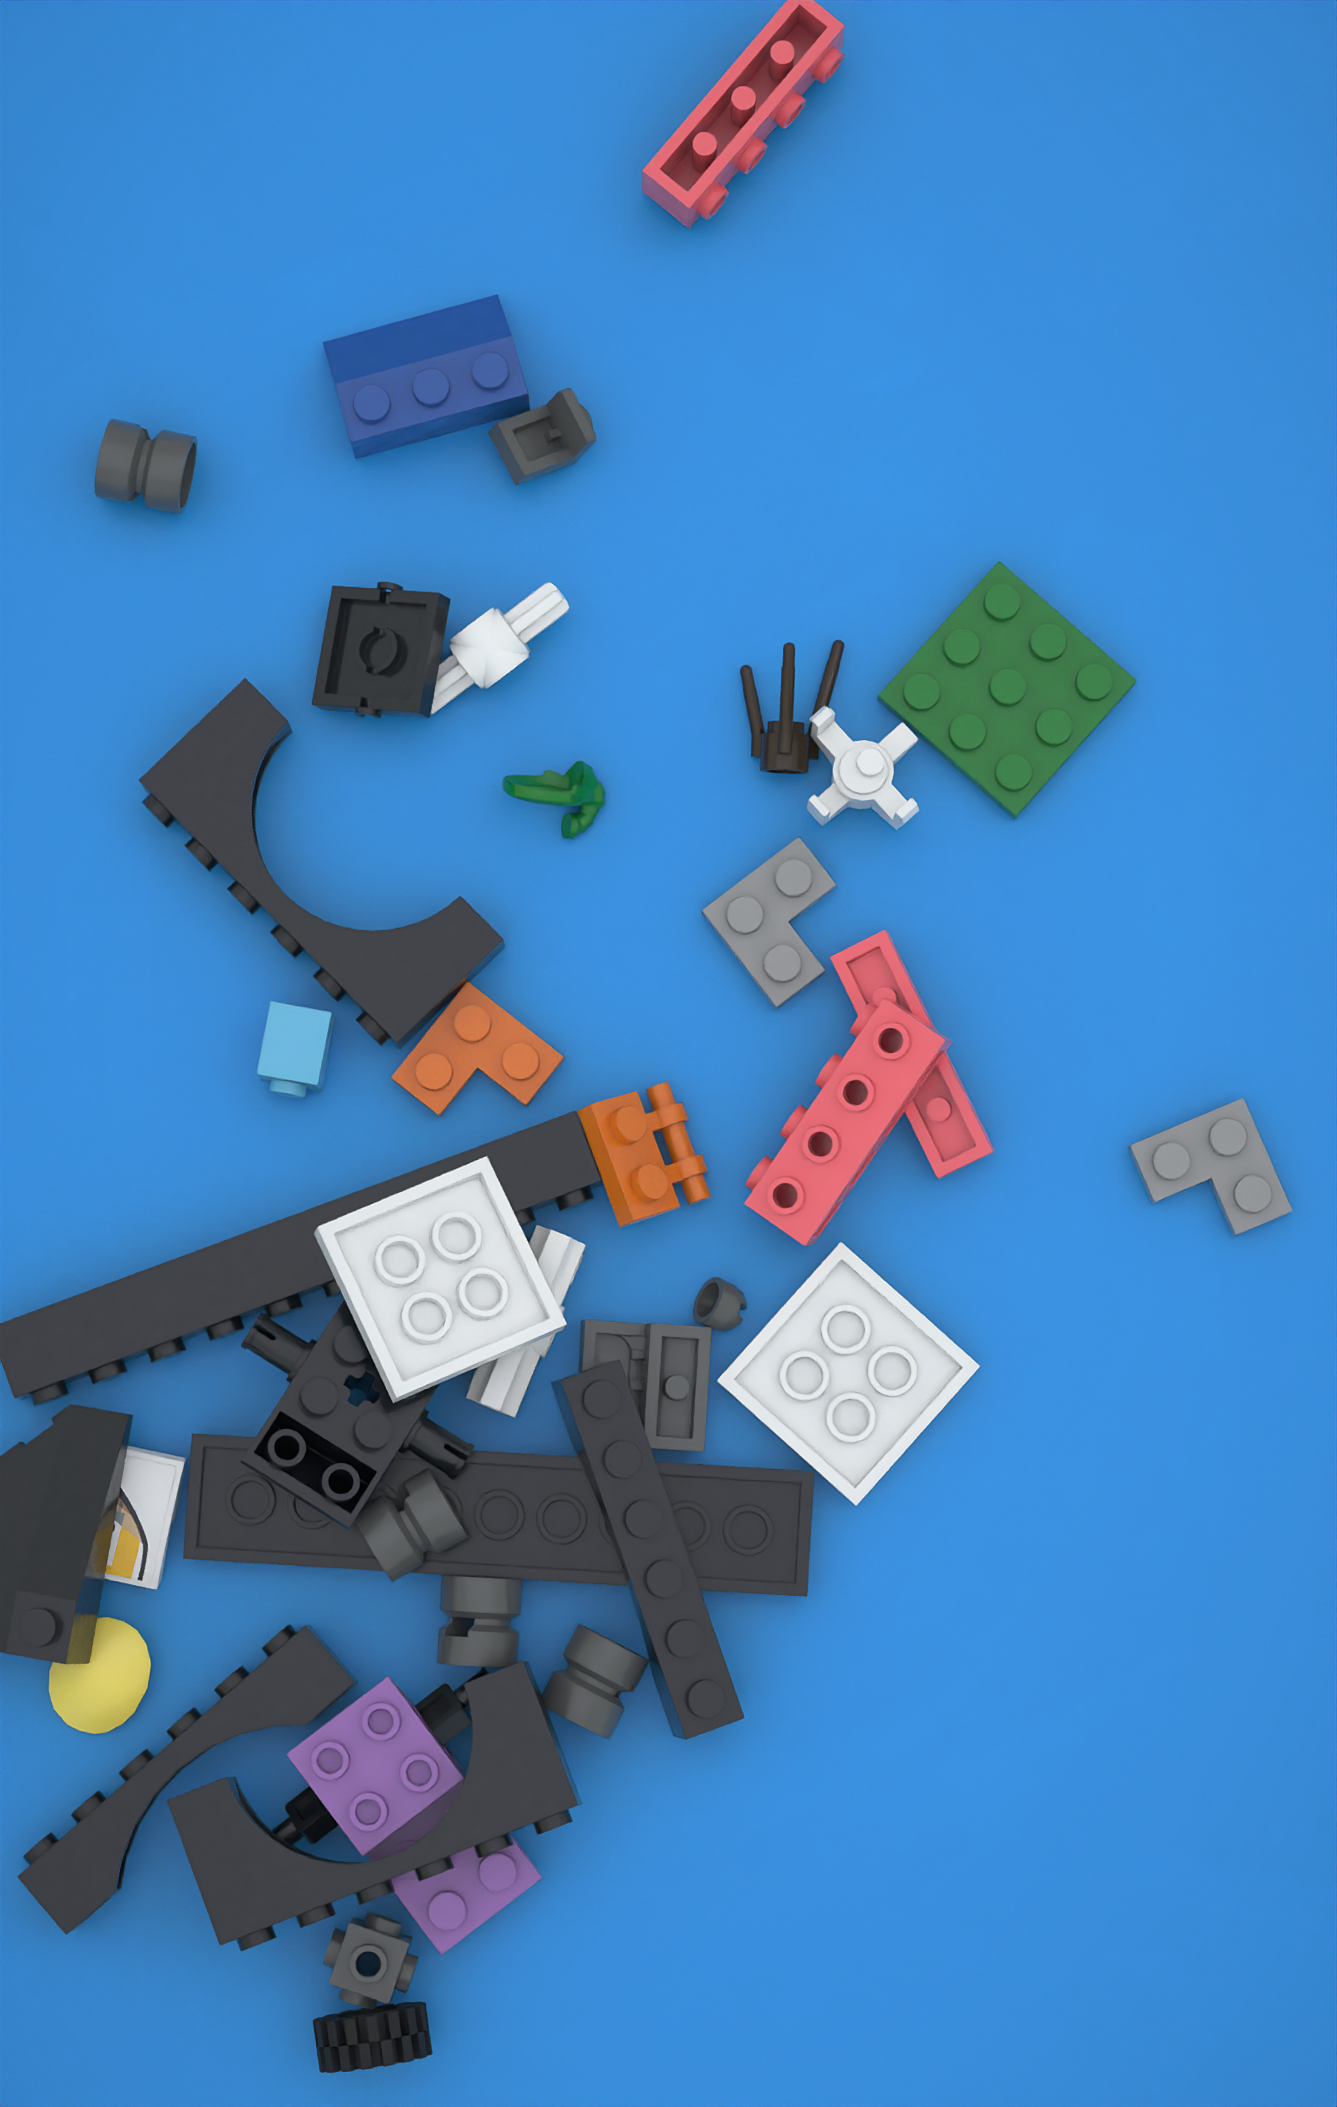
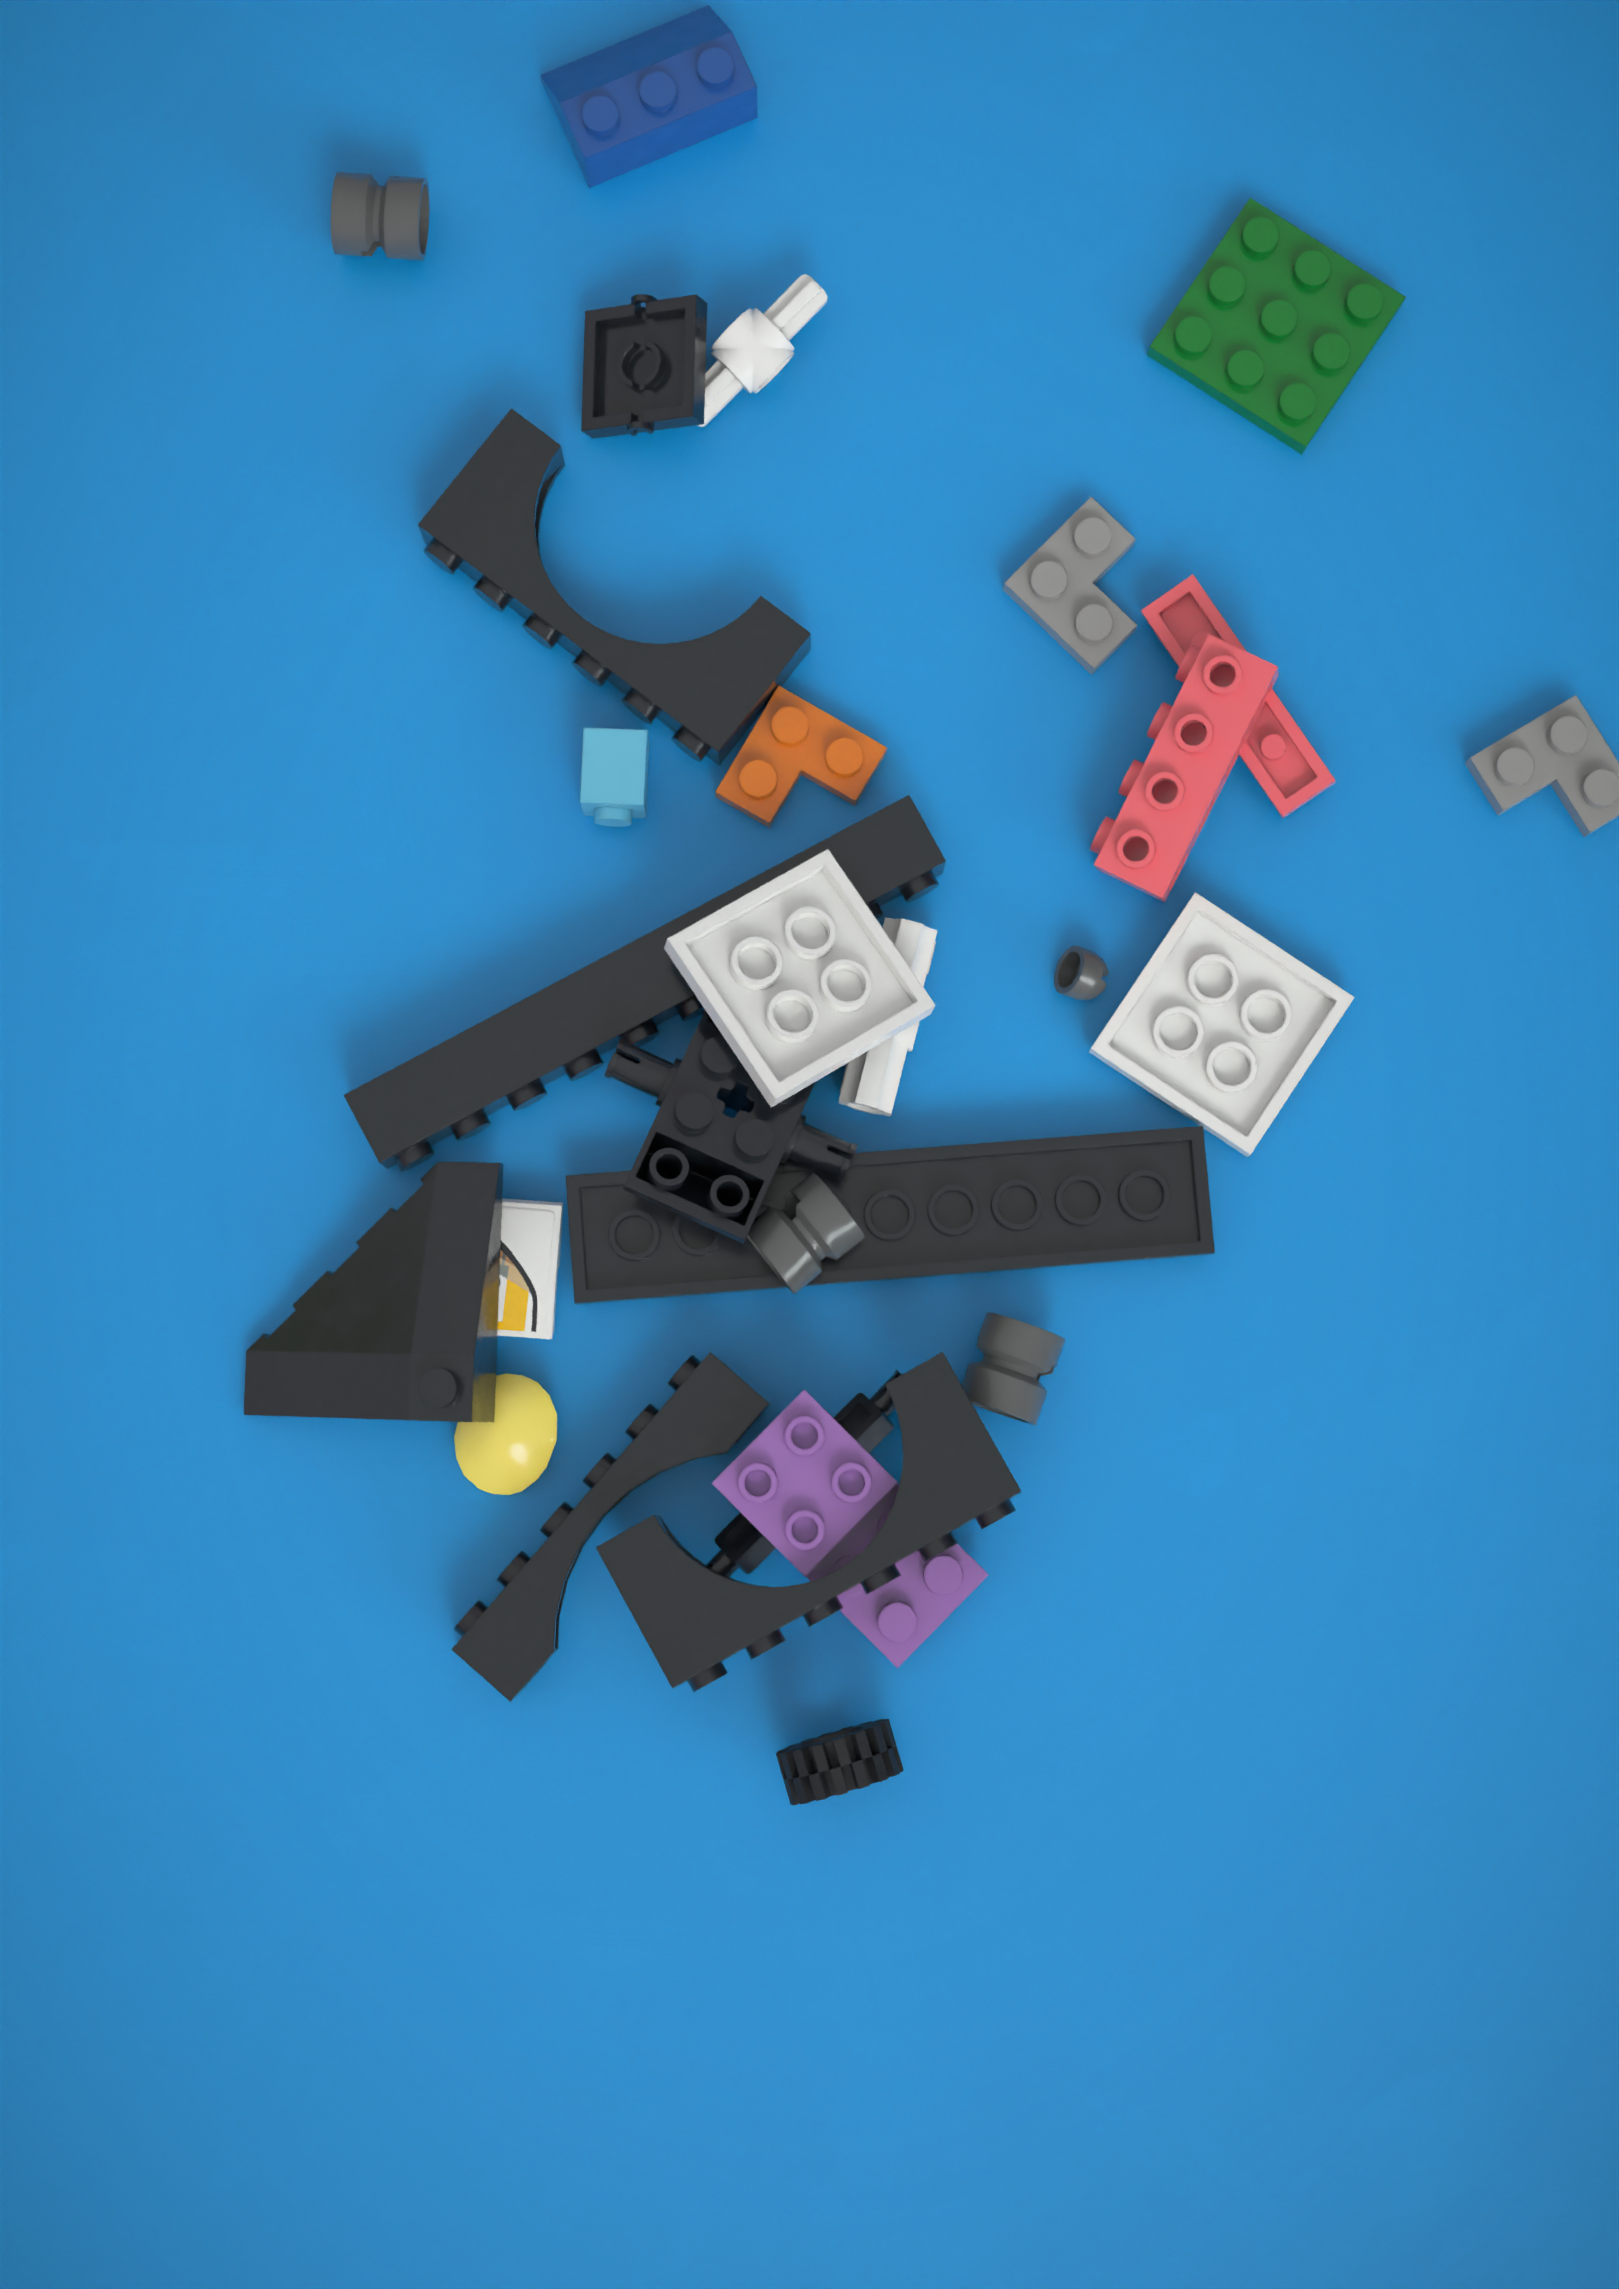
camera: 10 degrees left, 0 degrees up
(381, 1937) = (825, 1657): dark grey brick -> none
(479, 1621) = (885, 1323): dark grey wheel -> none
(544, 437) = (778, 136): dark grey bracket -> none
(575, 788) = (860, 477): green piece -> none
(630, 1158) = (972, 839): orange plate -> none
(651, 1550) = (1087, 1296): black arch -> none
(664, 1372) = (1014, 1066): dark grey slope -> none
(785, 745) = (1064, 409): dark brown plant -> none
(861, 772) = (1145, 421): white piece -> none

